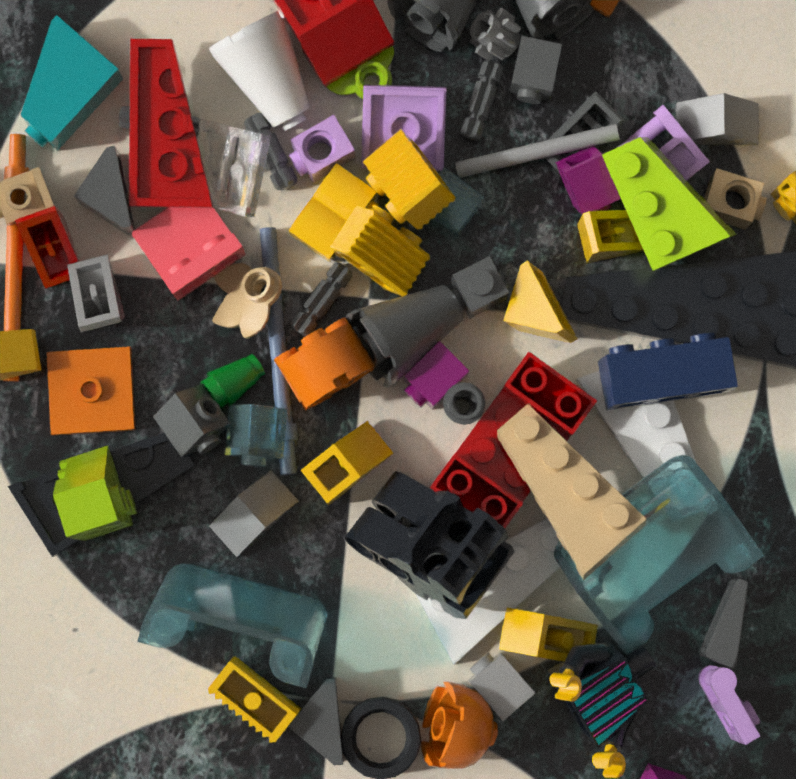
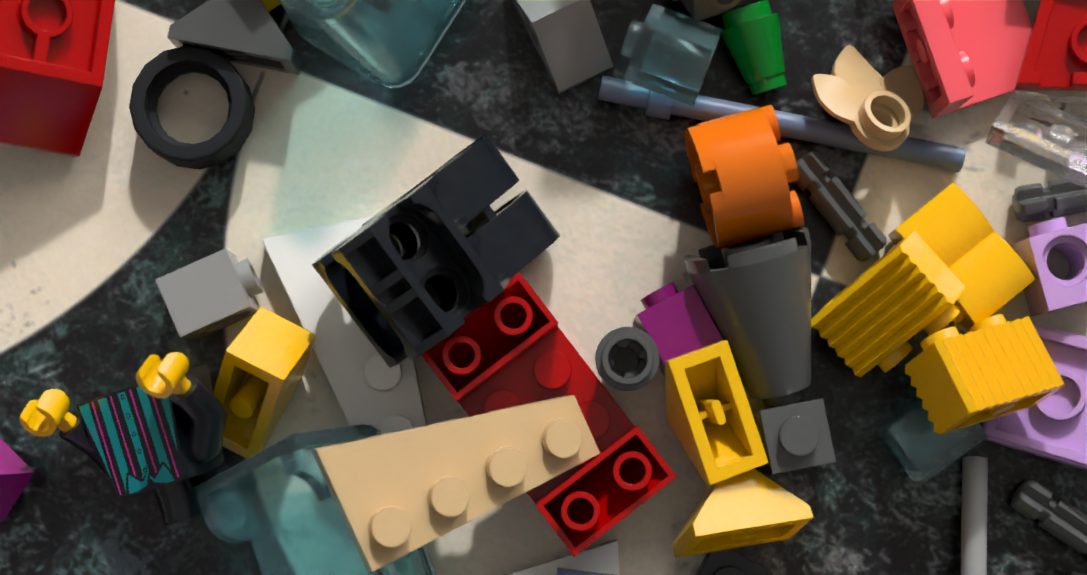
camera: 110 degrees right, 0 degrees up
(347, 462) = (591, 167): yellow slope -> none
(459, 727) = (166, 217): orange cylinder -> none
(482, 340) = (712, 413): none -> yellow slope

